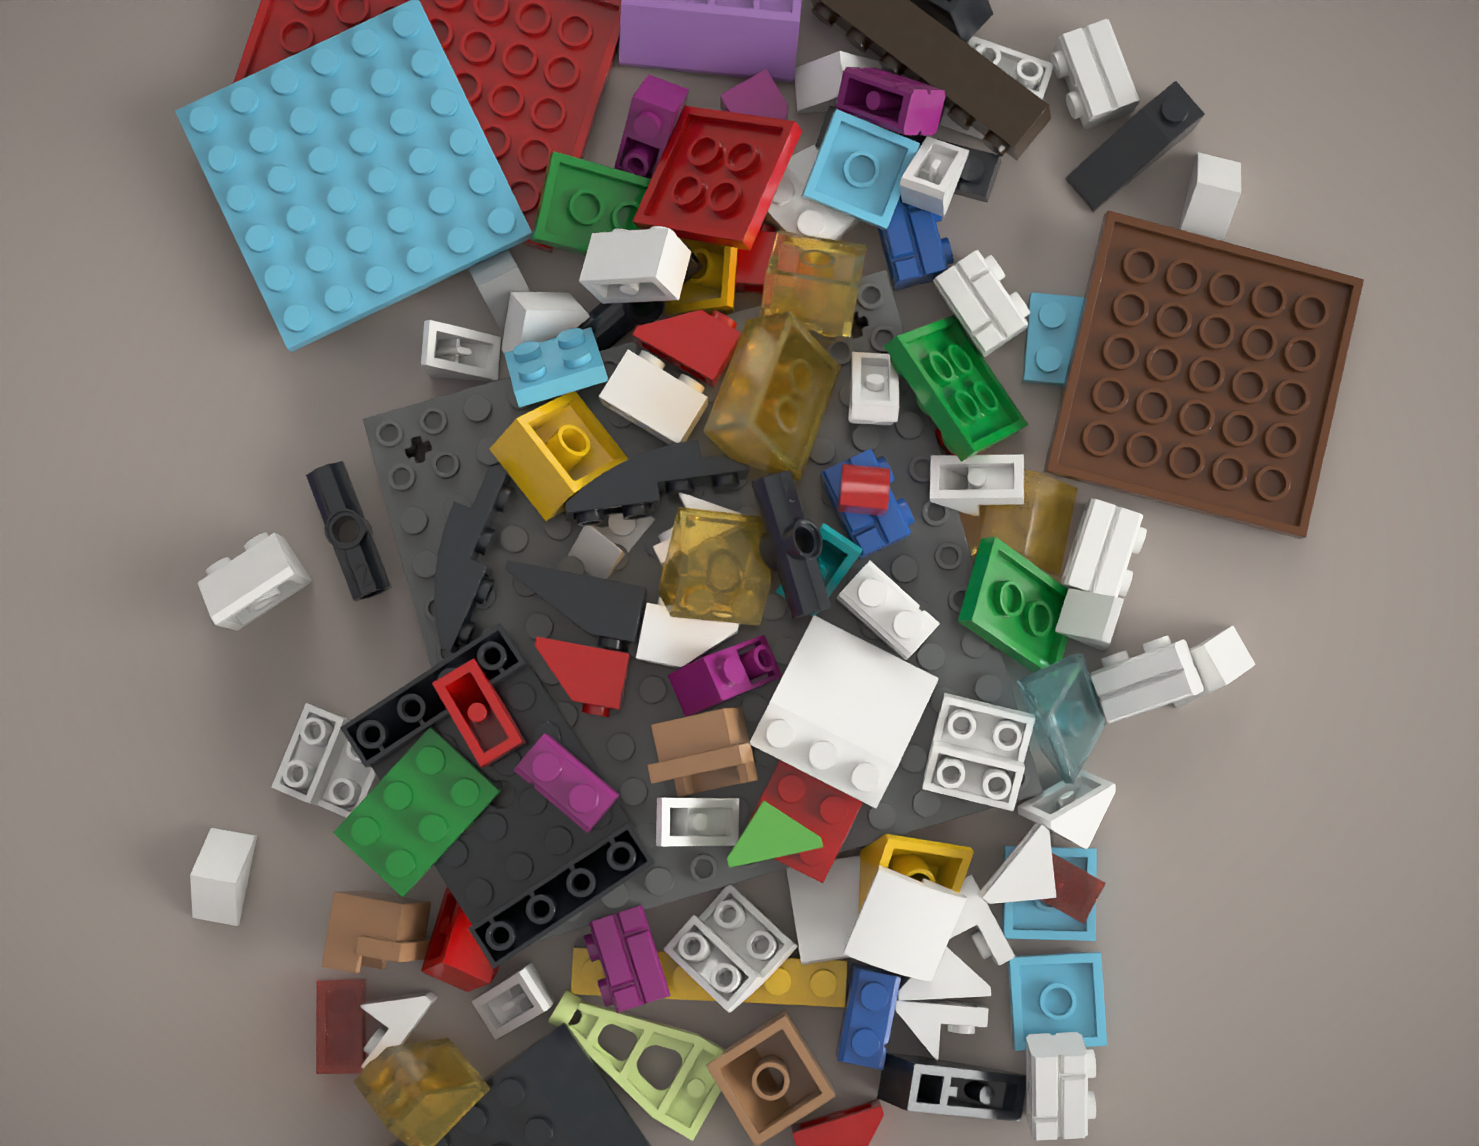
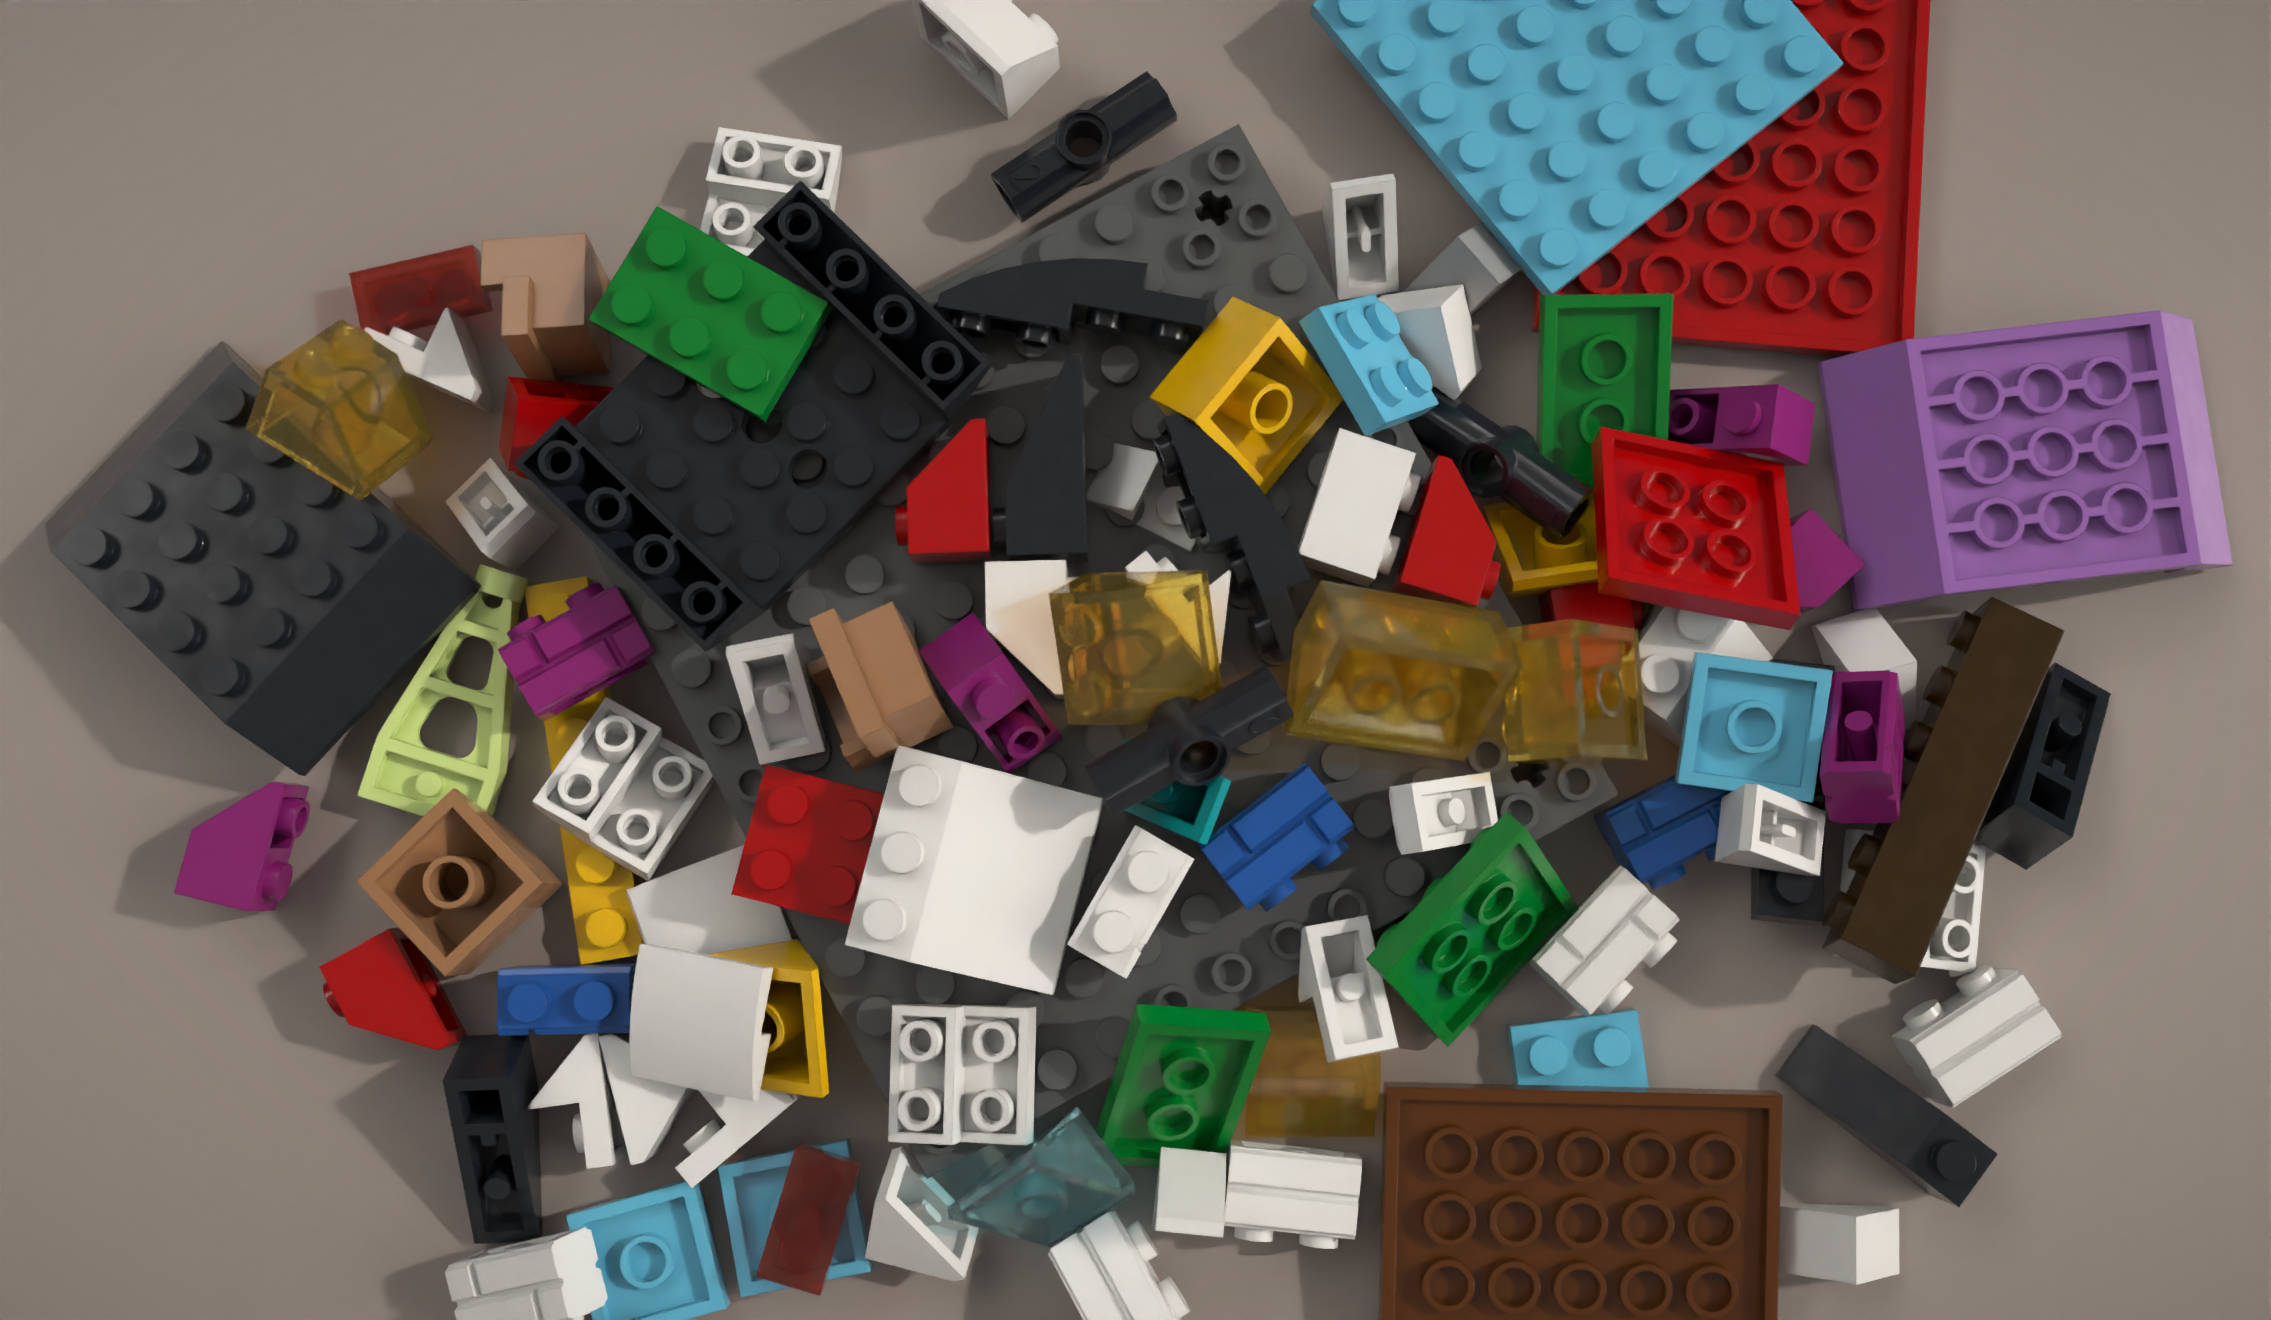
camera: 75 degrees right, 0 degrees up
(222, 876) = (589, 91): white slope -> none
(479, 713) = (855, 361): red slope -> none
(567, 782) = (789, 505): magenta brick -> none
(635, 265) = (1538, 440): white brick -> none
(771, 836) = (775, 807): bright green slope -> none
(864, 489) = (1292, 827): red brick -> none
(1025, 872) = (804, 1176): white slope -> none

